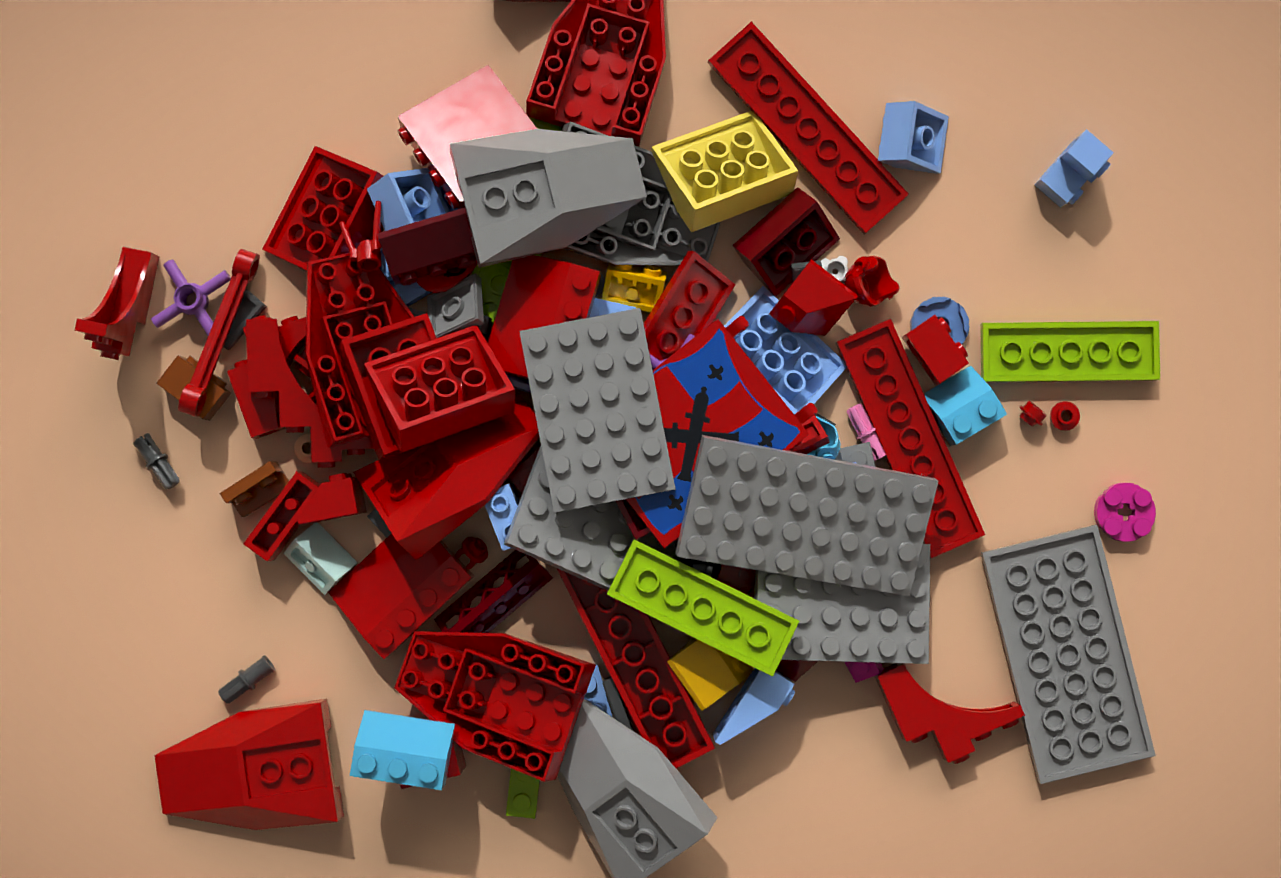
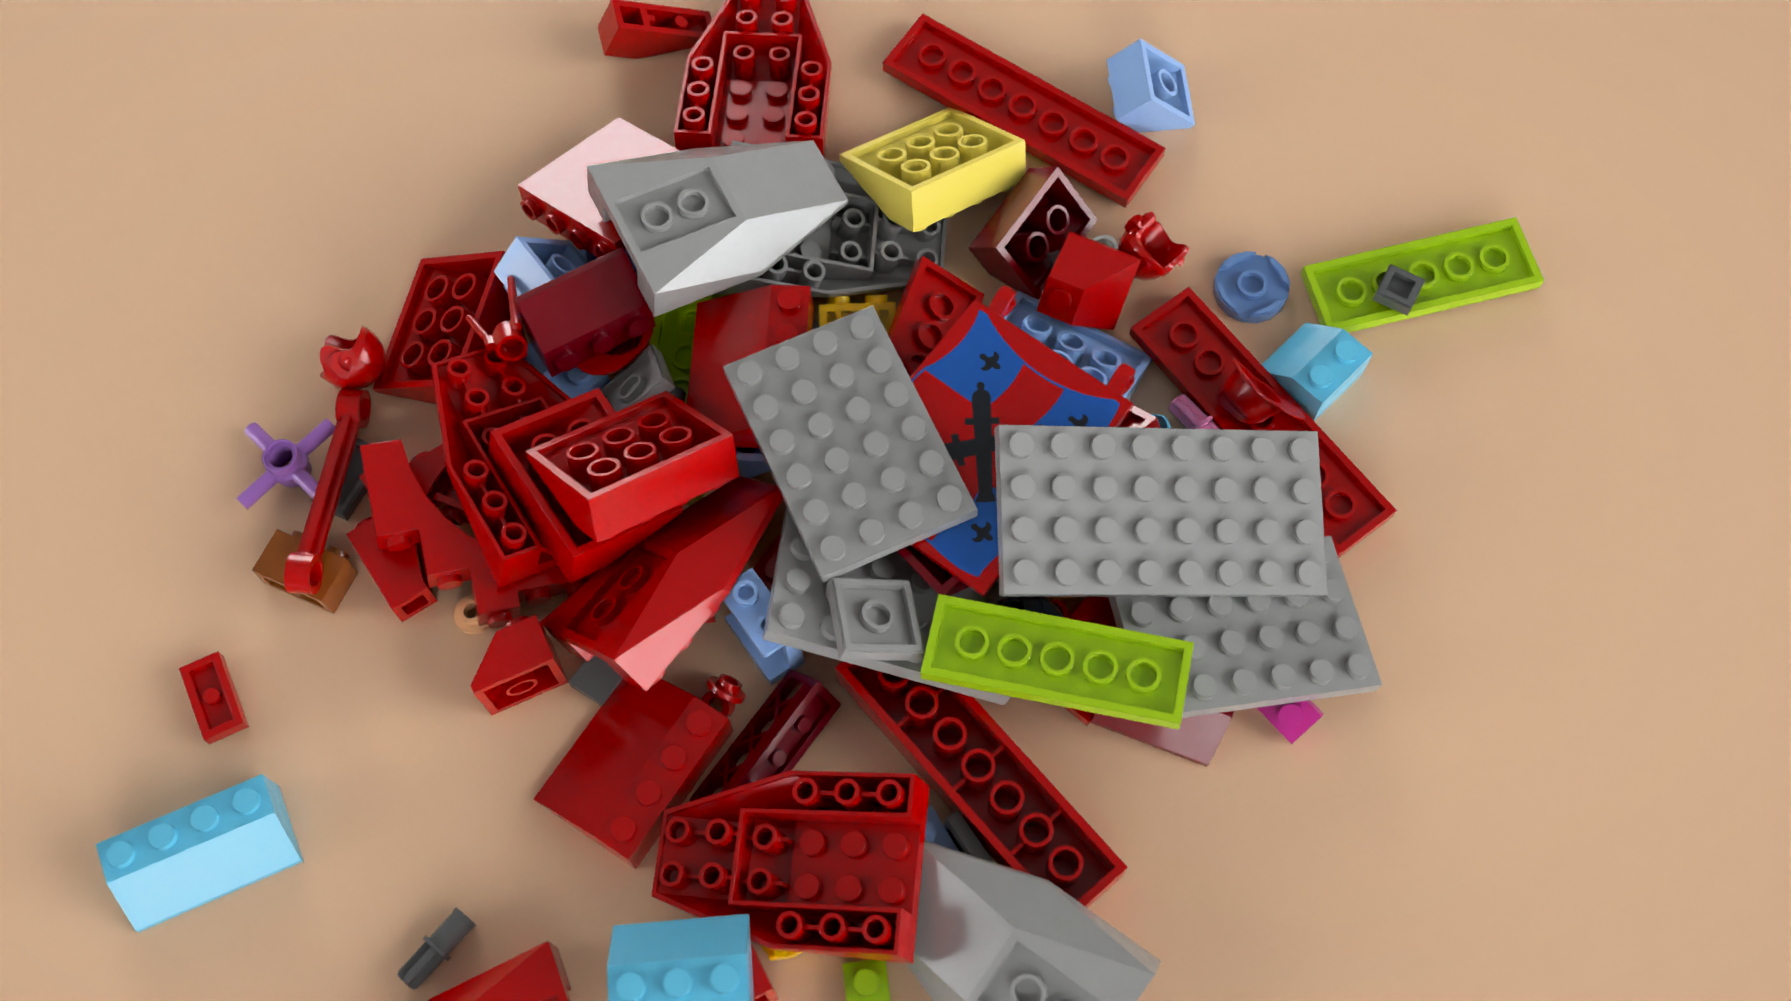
camera: 10 degrees left, 20 degrees down
(98, 577) = (200, 852): none -> medium azure slope
(118, 466) = (213, 697): none -> red plate
(123, 306) = (194, 485): red arch -> none
(156, 461) = (266, 677): dark grey axle -> none
(250, 226) = (352, 361): none -> red cap
(256, 488) = (409, 677): dark orange bracket -> none
(281, 518) = (449, 708): red brick -> none
(320, 557) = (512, 753): light aqua panel -> none
(585, 546) = (874, 619): none -> light grey tile
(707, 671) = (1088, 759): yellow slope -> none
(755, 701) = (1173, 774): light blue slope -> none
(911, 428) = (1252, 399): none -> red piece
(936, 349) = (1256, 304): red brick -> none
(951, 726) = (1395, 760): red arch -> none
(1032, 414) = (1402, 357): red plate -> none
(1046, 362) = (1398, 289): none -> dark grey tile
(1055, 416) = (1438, 359): red plate -> none
(1068, 654) = (1562, 641): light grey plate -> none
(1080, 161) = (1353, 75): light blue brick -> none
(1138, 523) = (1568, 426): dark pink plate -> none

